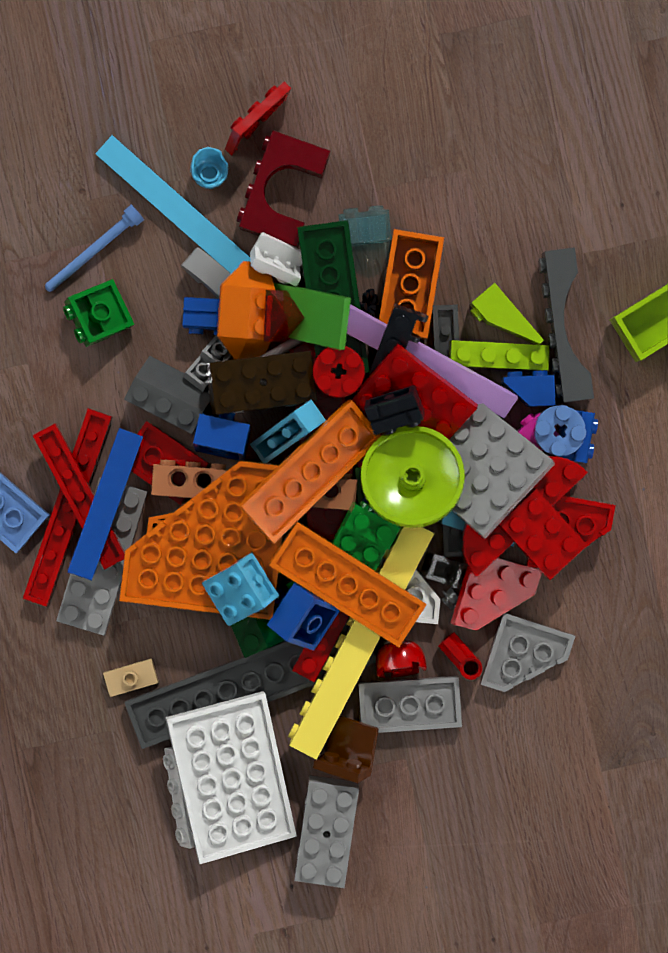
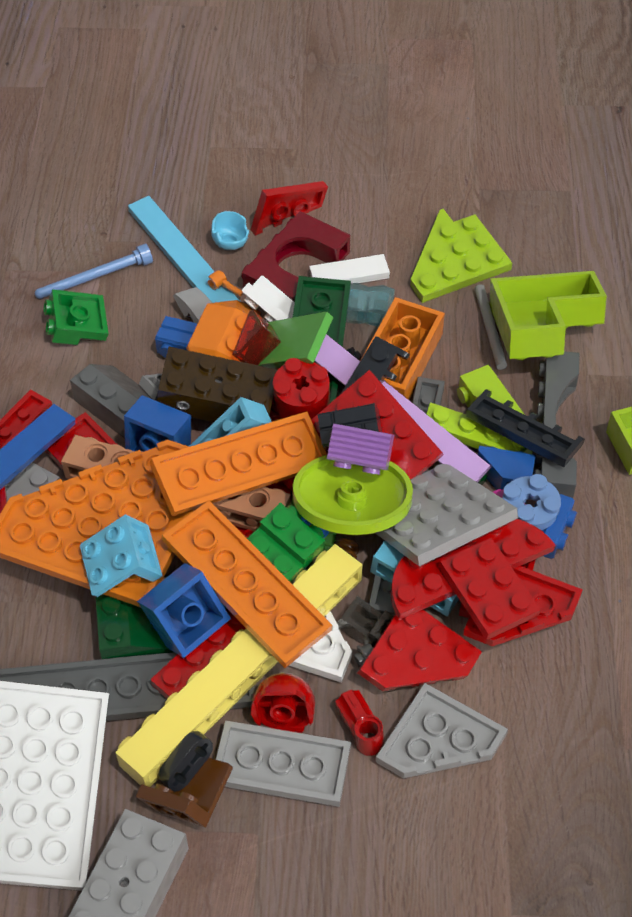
camera: 15 degrees right, 35 degrees down
(217, 236) = (219, 279): none -> orange hand
(337, 185) = (353, 270): none -> white tile
(341, 732) = (185, 761): none -> black beam
(411, 438) = (360, 447): none -> medium lavender brick
(435, 138) = (457, 257): none -> lime wing
(484, 220) = (490, 327): none -> light grey bar
(524, 200) = (539, 308): none -> lime piece
(540, 356) = (524, 429): none -> black hinge

